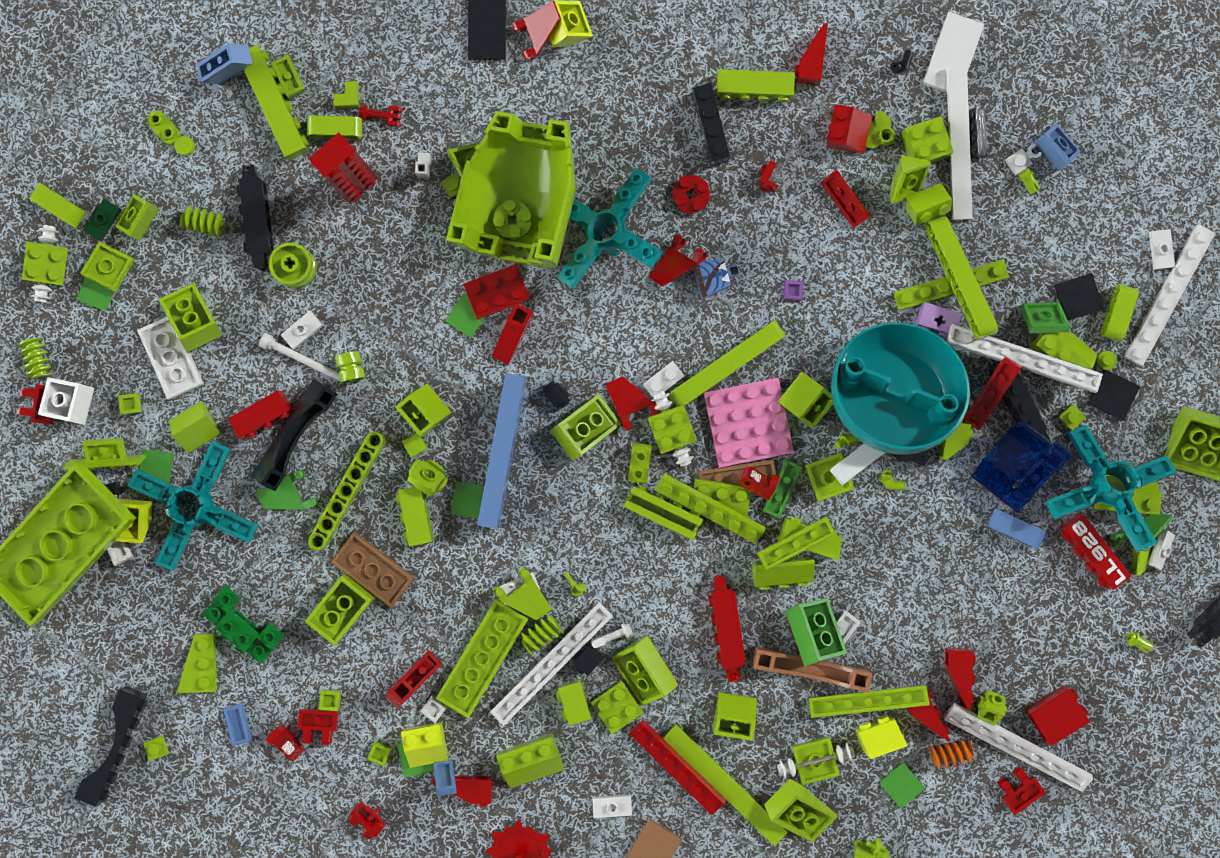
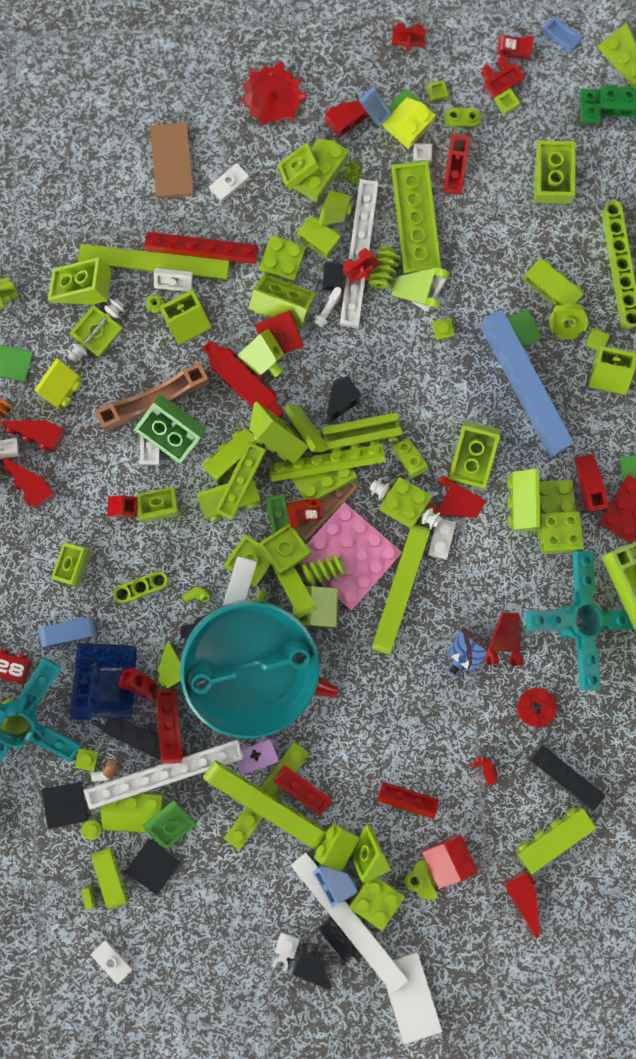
camera: 140 degrees right, 5 degrees down
(372, 569) = (552, 222): medium nougat tile -> none
(378, 713) = (462, 119): none -> lime plate
(503, 736) = (352, 173): none -> clear neon green tile
(531, 548) = (443, 329): none -> lime plate
(544, 715) = (335, 208): none -> lime slope
(547, 775) = (298, 166): none -> lime plate
(556, 394) = (517, 461): black brick -> none
(561, 326) = (559, 522): none -> lime piece
(563, 648) = (361, 267): none -> red hips
(577, 359) = (524, 500): none -> lime slope
(577, 589) = (382, 324): lime hand -> none
(660, 552) = (342, 398): none -> black slope
(670, 643) = (284, 331): none -> red plate
(695, 635) = (263, 354): none -> torso
(706, 549) = (305, 428): none -> lime tile
(721, 756) = (173, 280): none -> white plate
(736, 561) = (276, 434): none -> lime slope
(750, 753) = (150, 300): none -> lime plate
(779, 423) = (323, 570): none -> lime piece
(793, 290) = (392, 692): medium lavender tile -> none
(796, 464) = (284, 549): none -> lime plate
(813, 427) = (296, 592): none -> lime tile
(845, 332) = (326, 689): none -> red cone
(869, 701) = (86, 406): lime plate -> none
(870, 578) = (157, 505): none -> lime slope
(900, 597) = (122, 506): none -> red brick
(904, 64) = (444, 955): black arm -> none
(922, 267) = (302, 790): none -> red plate
(940, 524) = (131, 587): none -> lime beam
(951, 175) = (335, 885): none -> medium blue slope
(974, 580) = (71, 564): none -> lime slope
(991, 445) = (138, 683): none -> red leg
(1014, 129) = (312, 967): none -> black slope
(1029, 181) = (267, 934): lime pin -> none
(1057, 147) = (263, 984): medium blue slope -> none
(1064, 394) = (107, 773): none -> arm
(1146, 310) = (88, 897): none -> lime tile
(1169, 295) = (77, 928): white plate -> none

